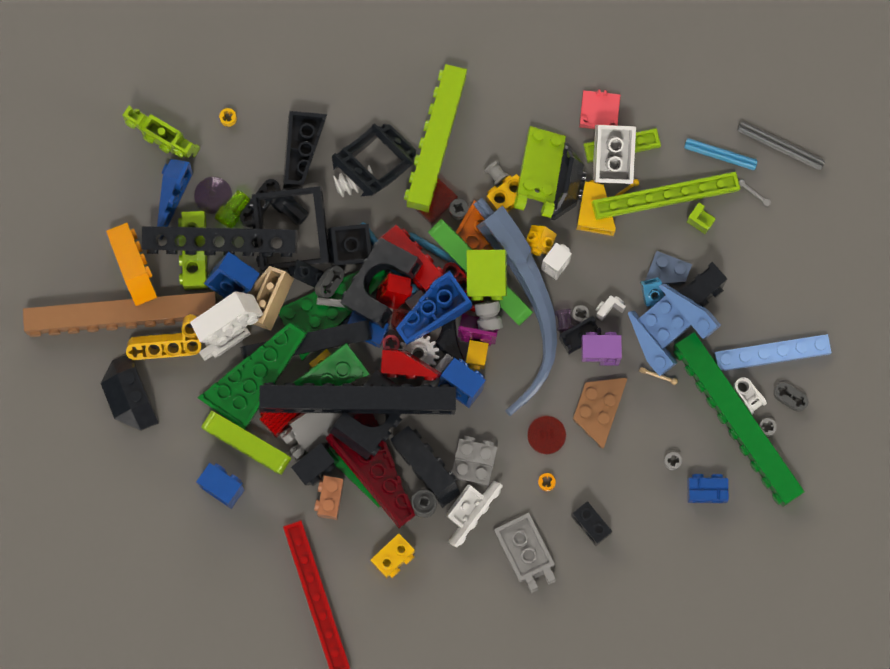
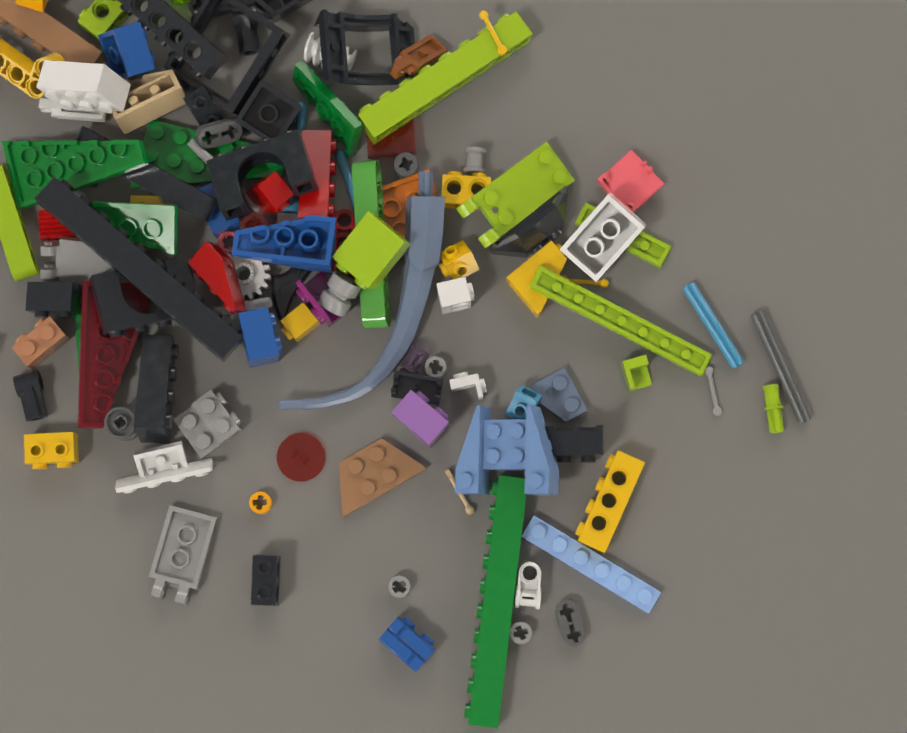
camera: 45 degrees right, 5 degrees up
(347, 532) = (29, 389): none -> black piece
(382, 212) = (329, 108): none -> green wing
(410, 138) = (418, 56): none -> dark orange hinge
(458, 93) = (502, 49): none -> yellow hinge
(748, 277) = (631, 469): none -> yellow brick
(798, 173) = (773, 408): none -> lime axle

